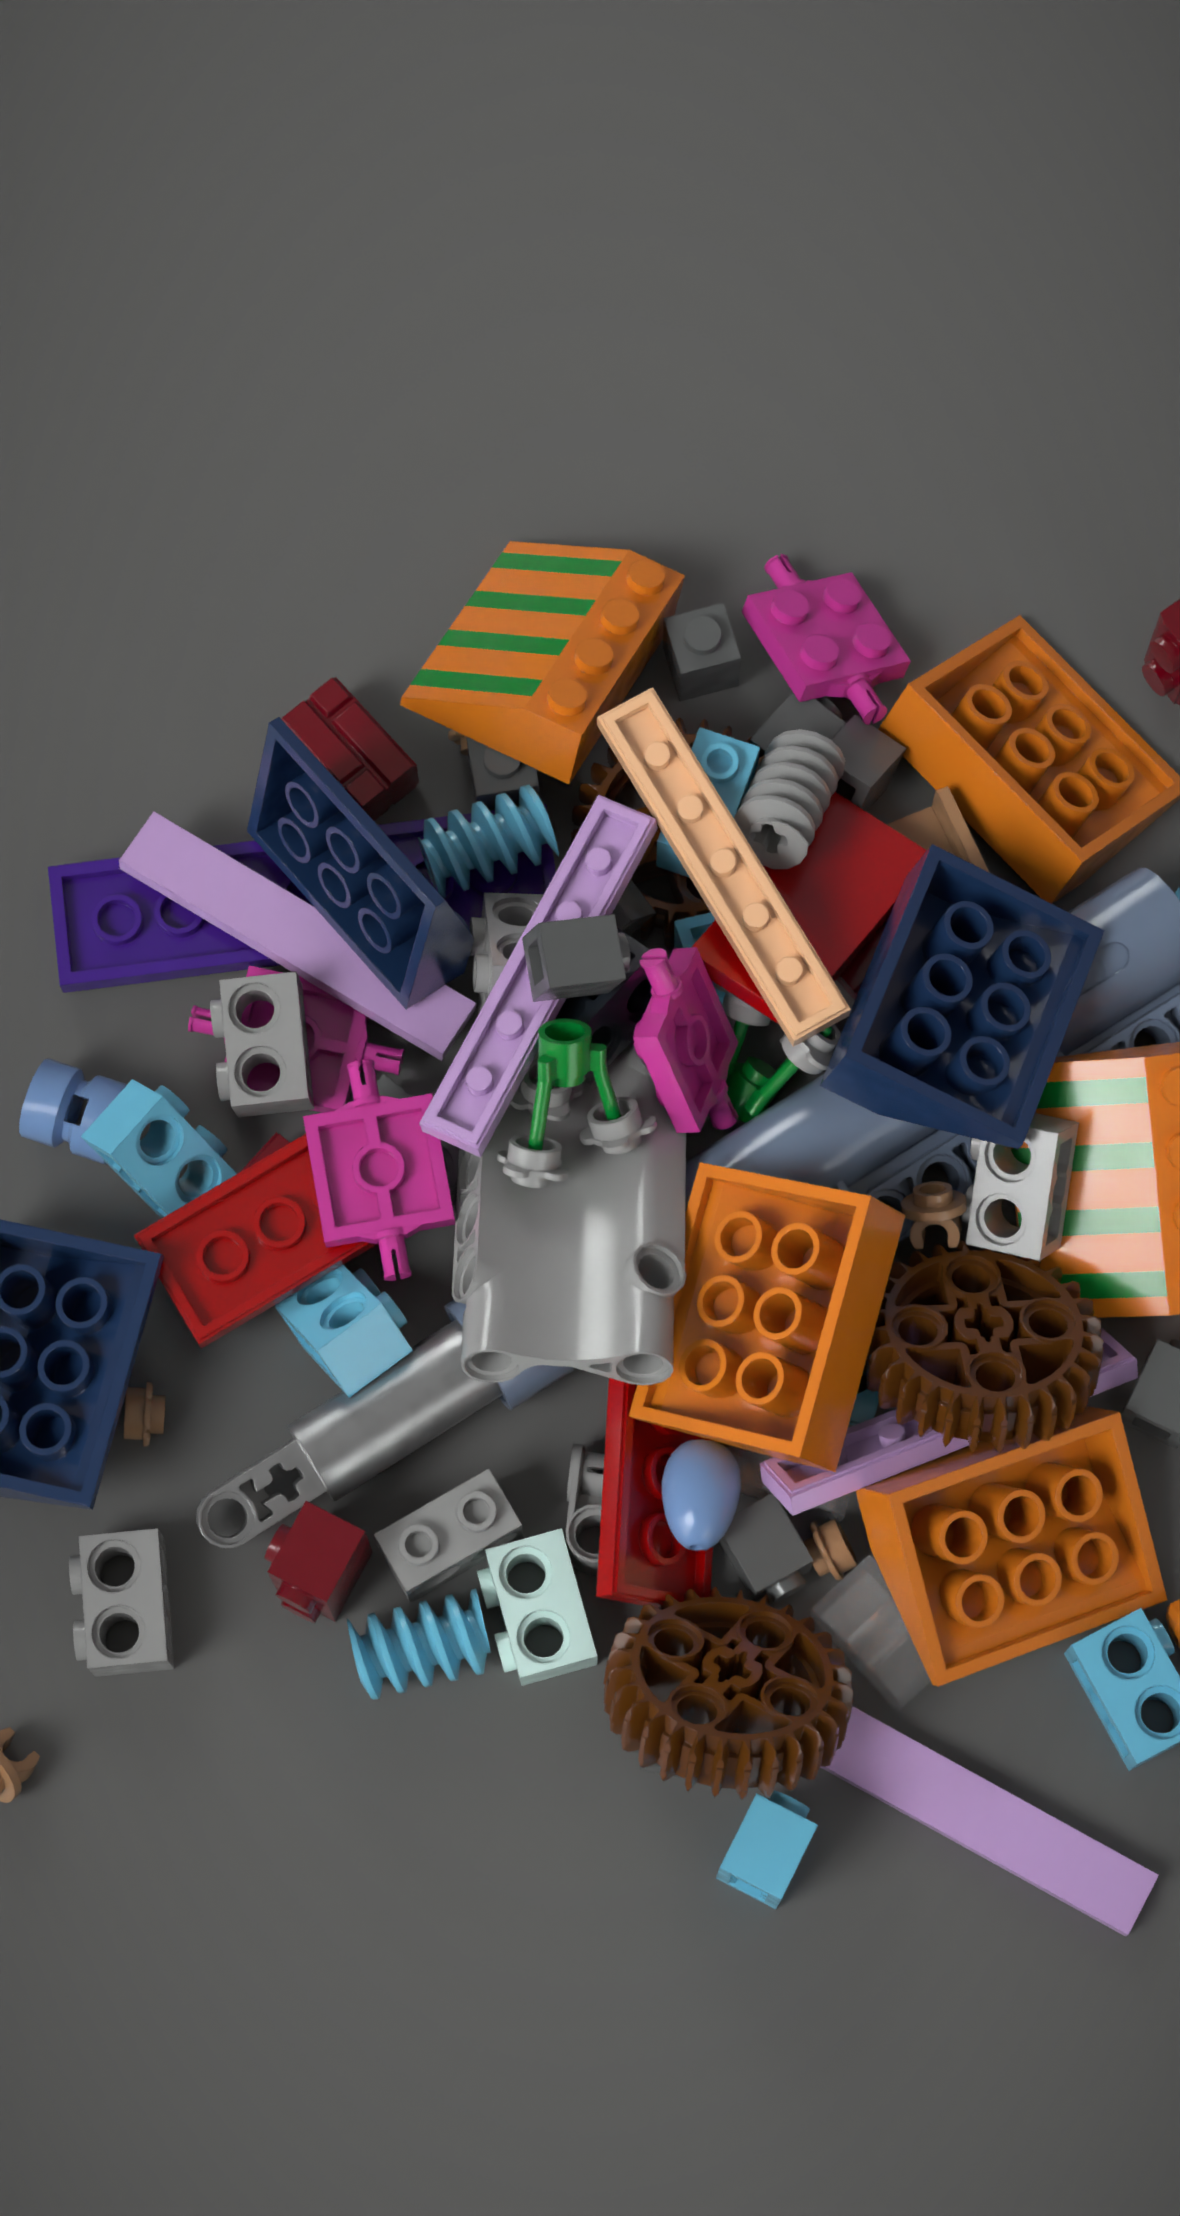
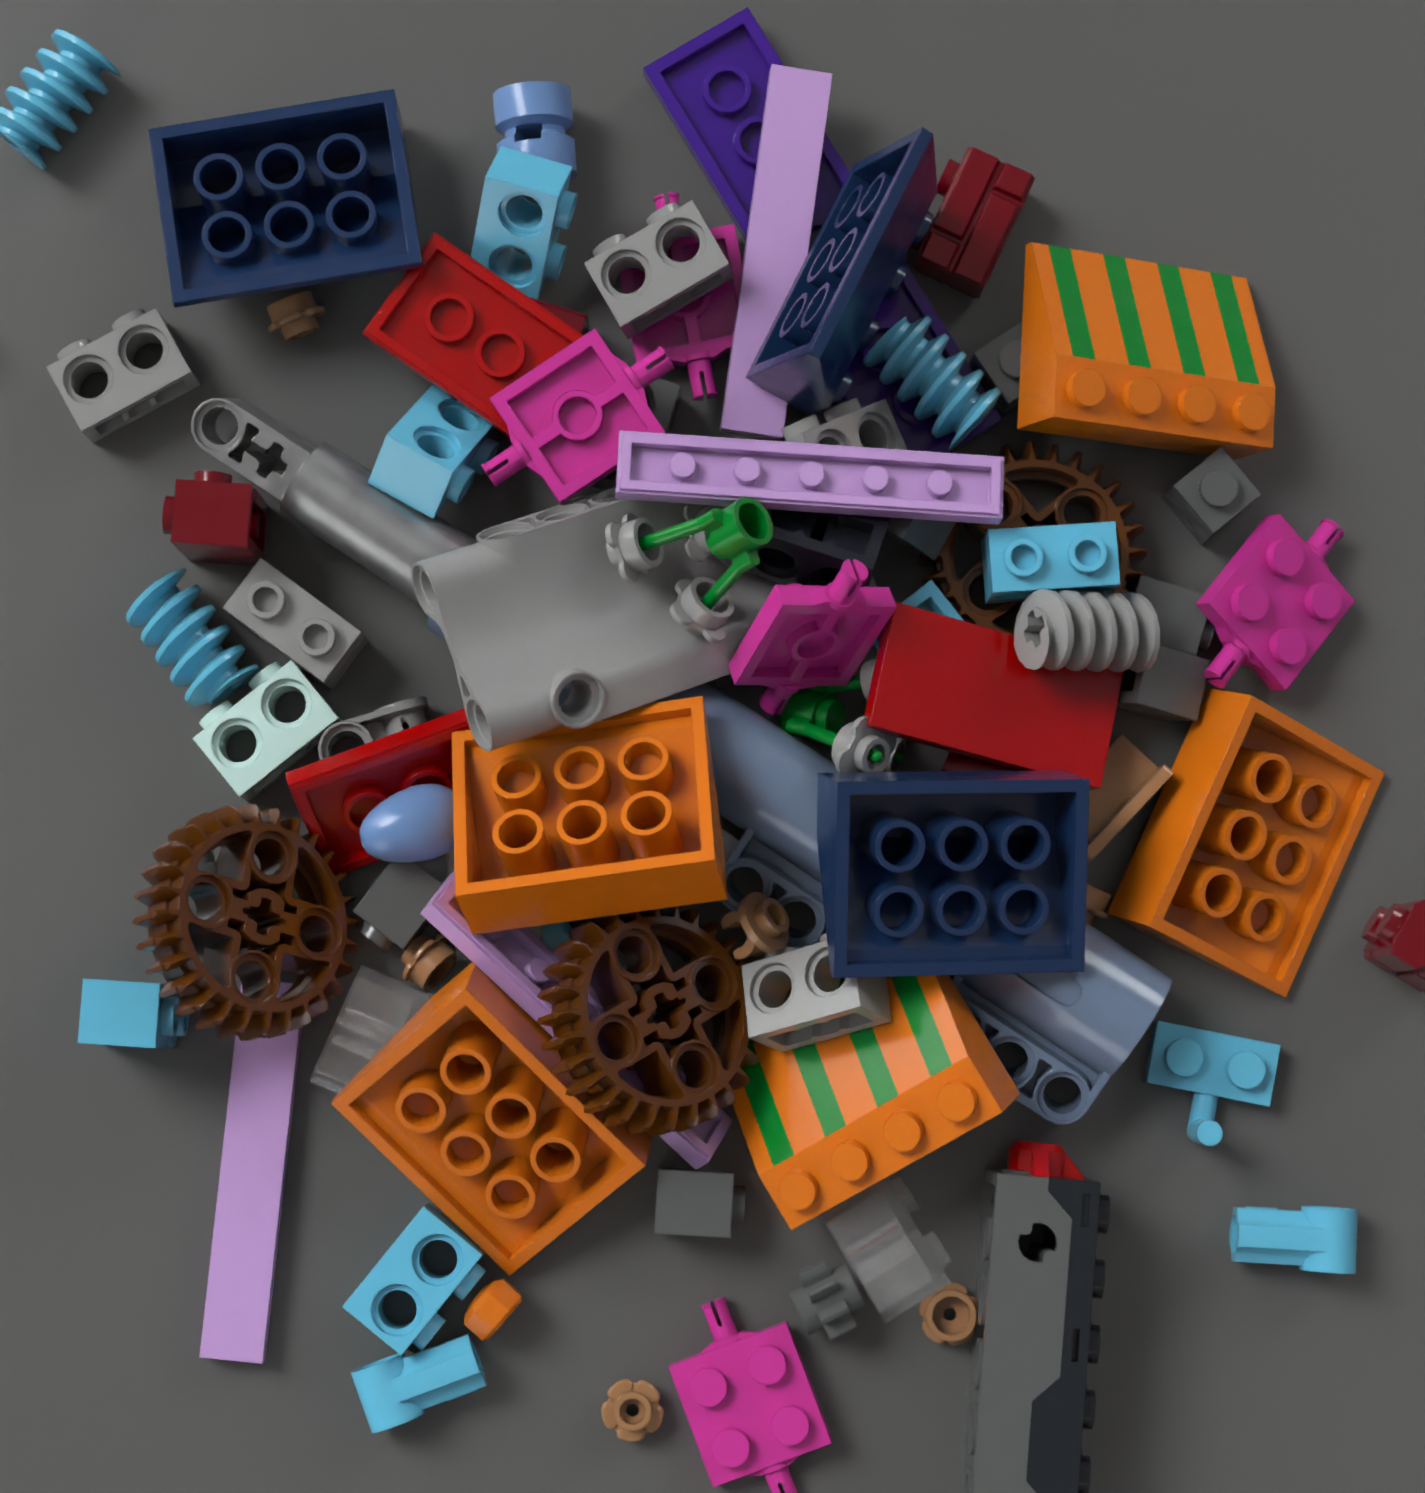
camera: 60 degrees right, 10 degrees up
(575, 957) = (827, 502): dark grey brick -> none
(723, 867) = (985, 597): light nougat tile -> none

